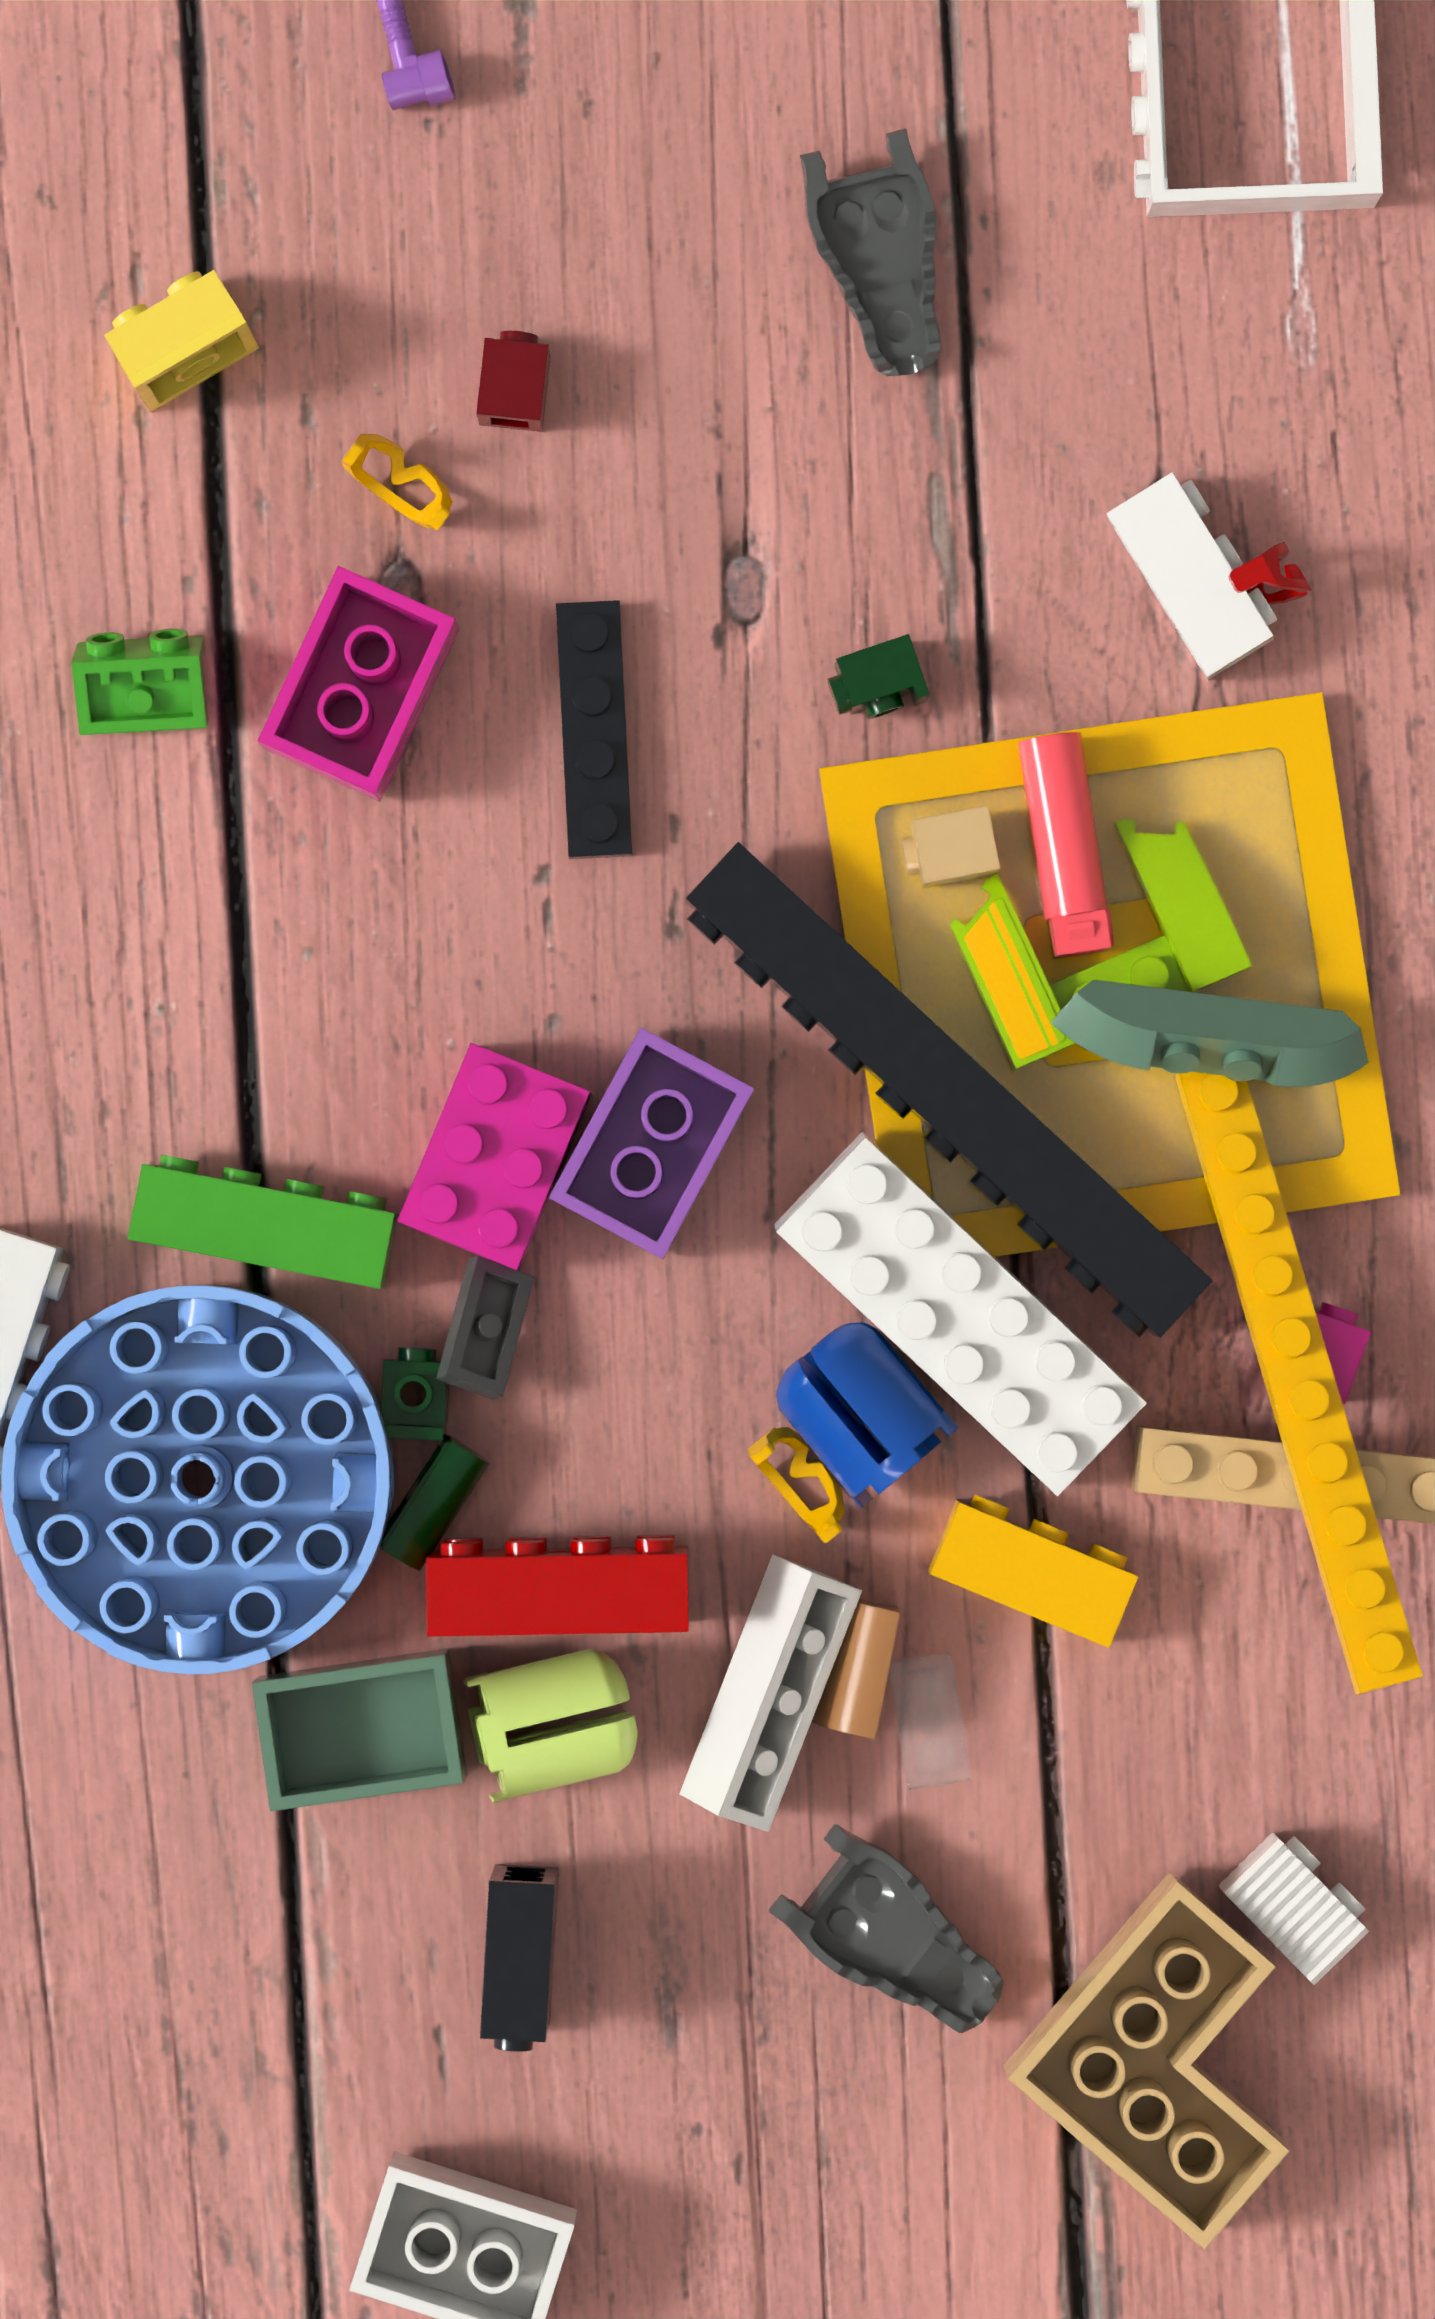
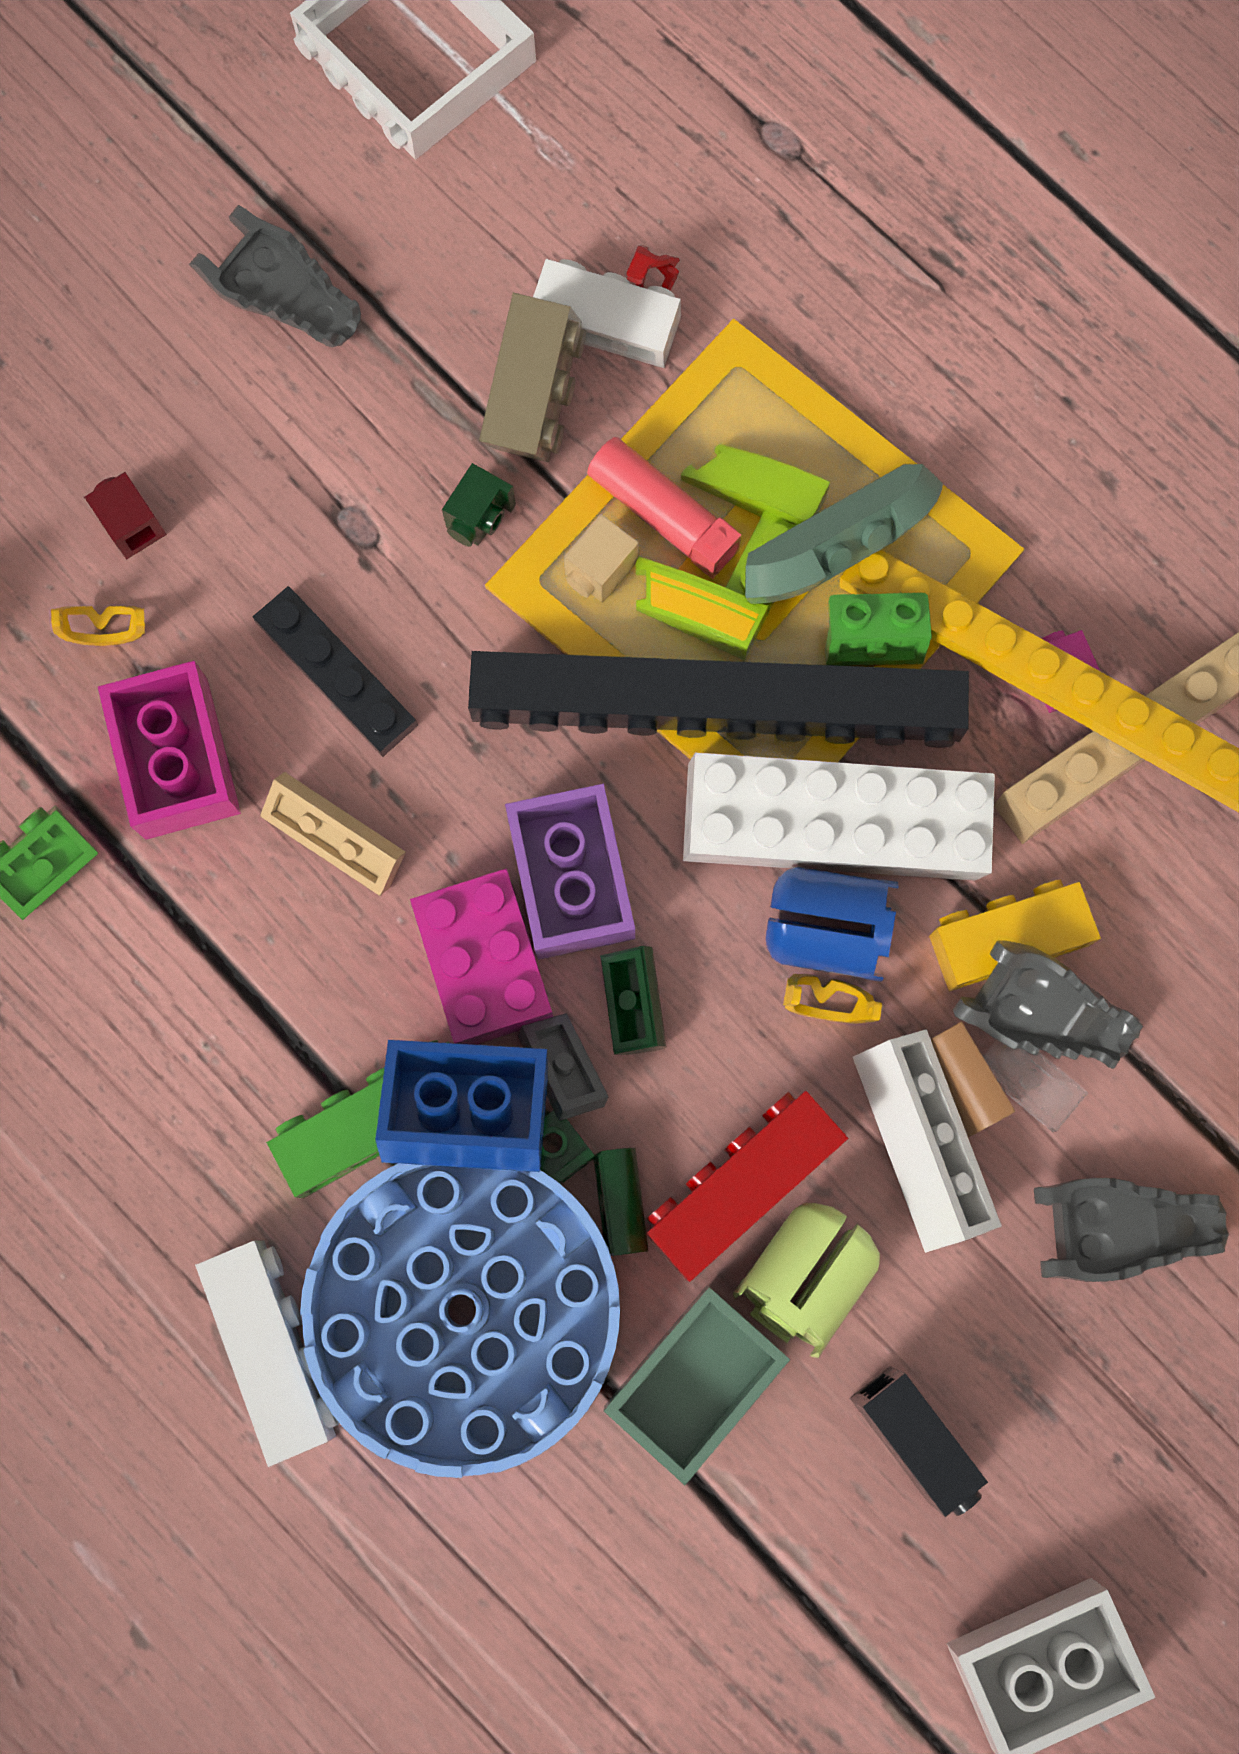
camera: 40 degrees left, 10 degrees down
(353, 1295) = (462, 1105): none -> blue brick
(452, 903) = (332, 833): none -> tan plate
(607, 1320) = (633, 1001): none -> dark green brick
(995, 1664) = (1046, 1007): none -> dark grey animal
(1040, 604) = (532, 378): none -> dark tan brick
(1166, 1157) = (878, 629): none -> bright green bracket

